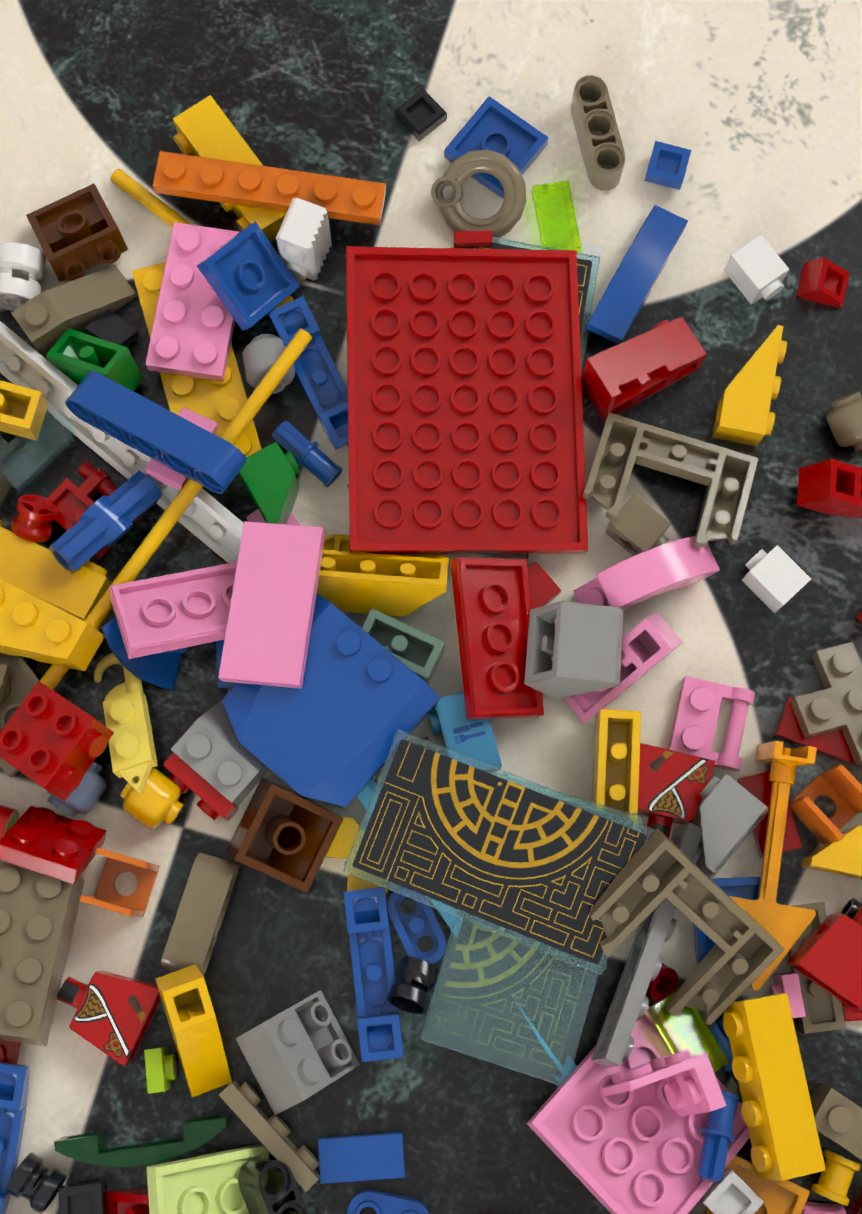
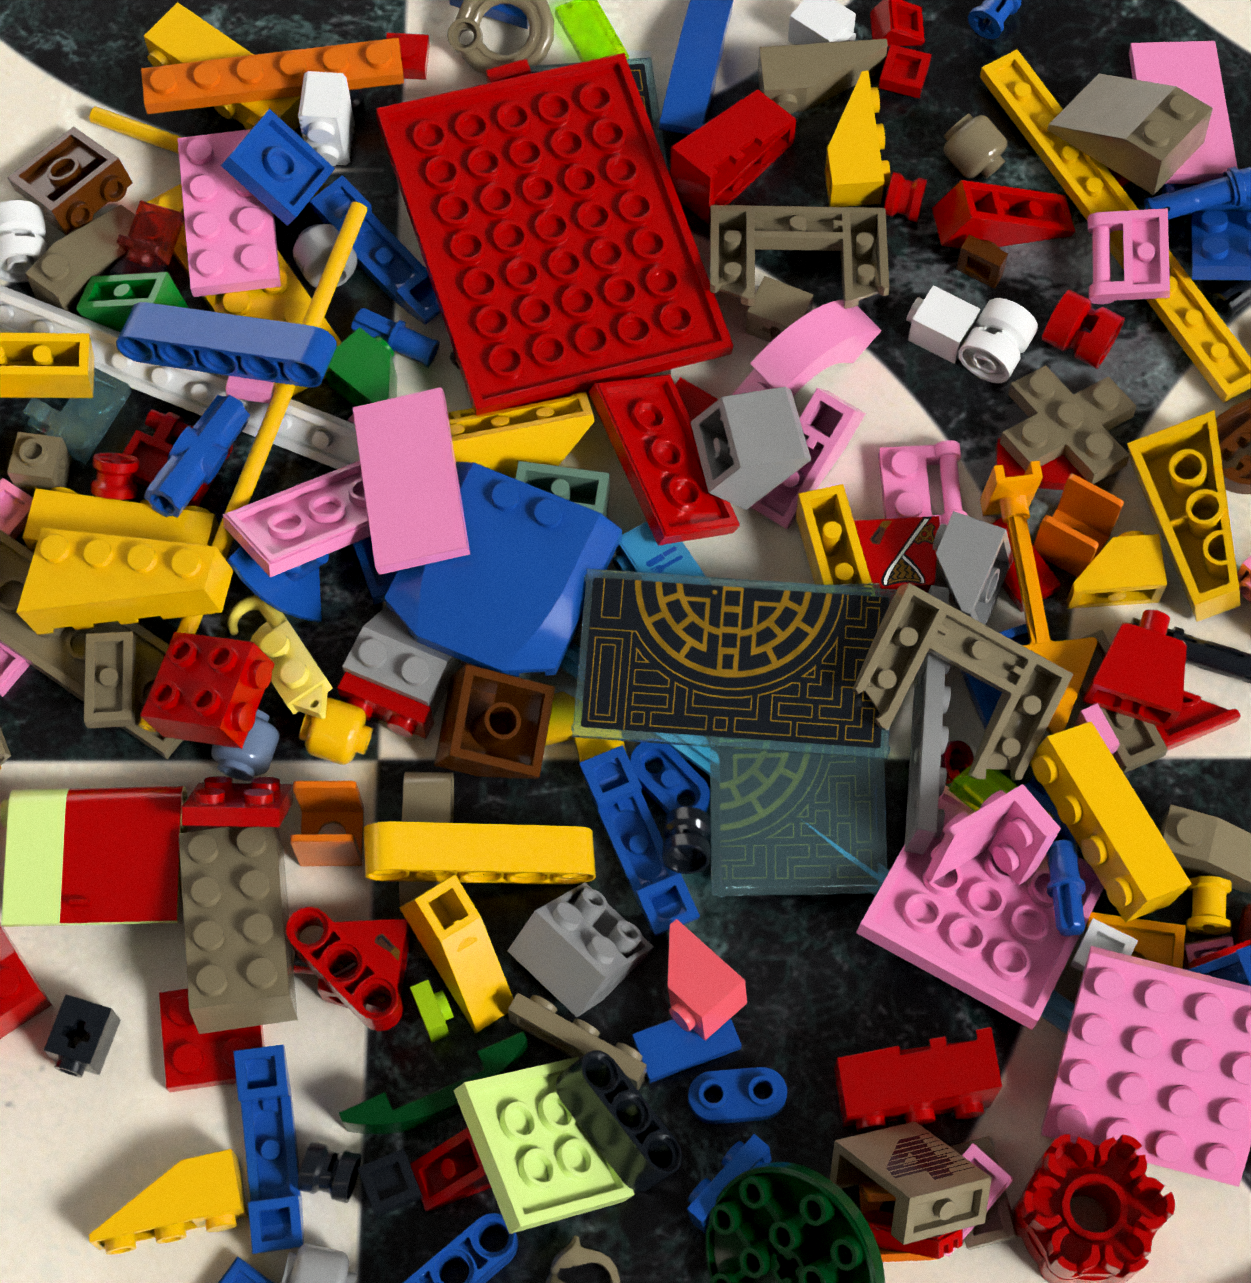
camera: 15 degrees left, 10 degrees down
(73, 1012) = (330, 950): none -> red beam
(128, 305) = (152, 234): none -> clear red bracket
(234, 951) = (478, 853): none -> yellow beam
(383, 1119) = (700, 984): none -> coral slope
(398, 194) = (414, 54): none -> red plate
(729, 311) = (812, 73): none -> dark tan slope
(779, 450) = (905, 196): none -> red wheel
(813, 613) = (996, 342): none -> white wheel
(816, 331) = (905, 71): none -> red plate
(828, 529) = (982, 261): none -> reddish brown plate

